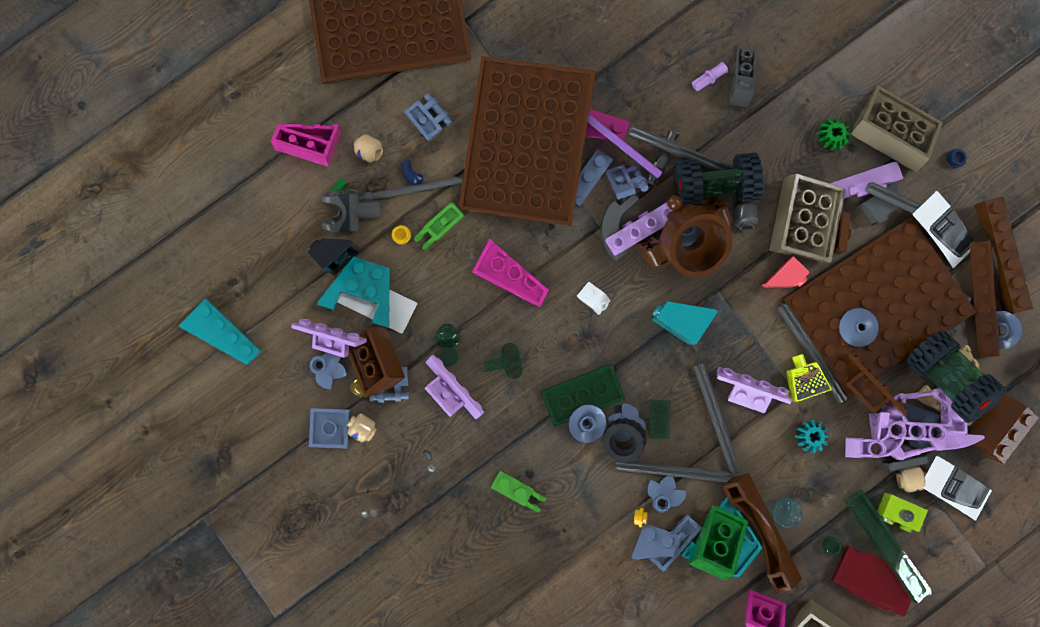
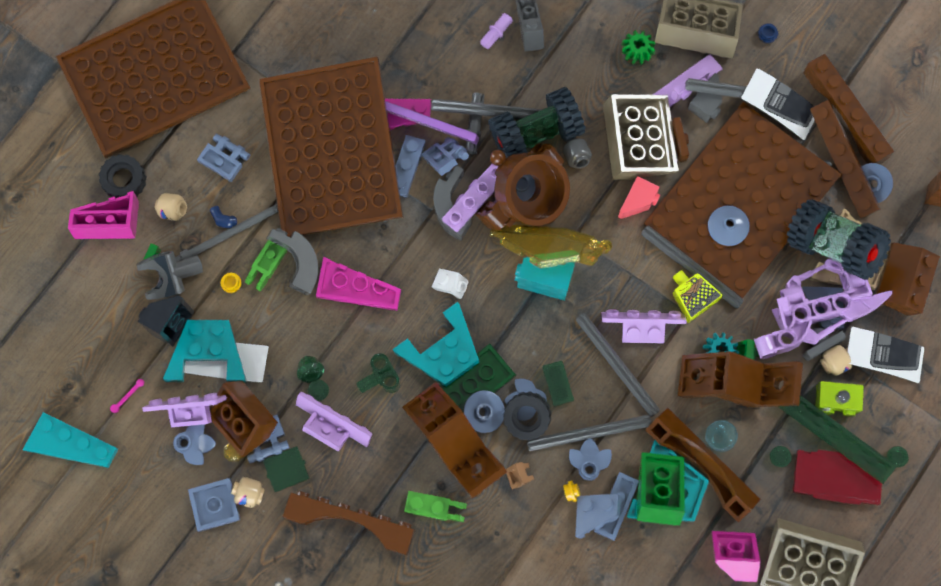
camera: 15 degrees left, 10 degrees down
(268, 314) = (115, 408): none -> dark pink hinge
(327, 93) = (122, 162): none -> black tyre
(400, 416) = (286, 469): none -> clear green piece
(405, 458) = (307, 510): none -> reddish brown arch
(472, 239) = (304, 256): none -> dark grey arch
(553, 443) = (454, 439): none -> reddish brown bracket
(572, 364) = (449, 356): none -> teal wing
(598, 488) = (517, 475): none -> medium nougat tile
(696, 298) = (551, 245): none -> clear yellow windscreen
(822, 471) = (740, 379): none -> reddish brown bracket
(835, 445) = (747, 349): none -> green tile
(870, 390) = (760, 282): reddish brown bracket -> none
(934, 579) = (898, 456): none -> clear green plate

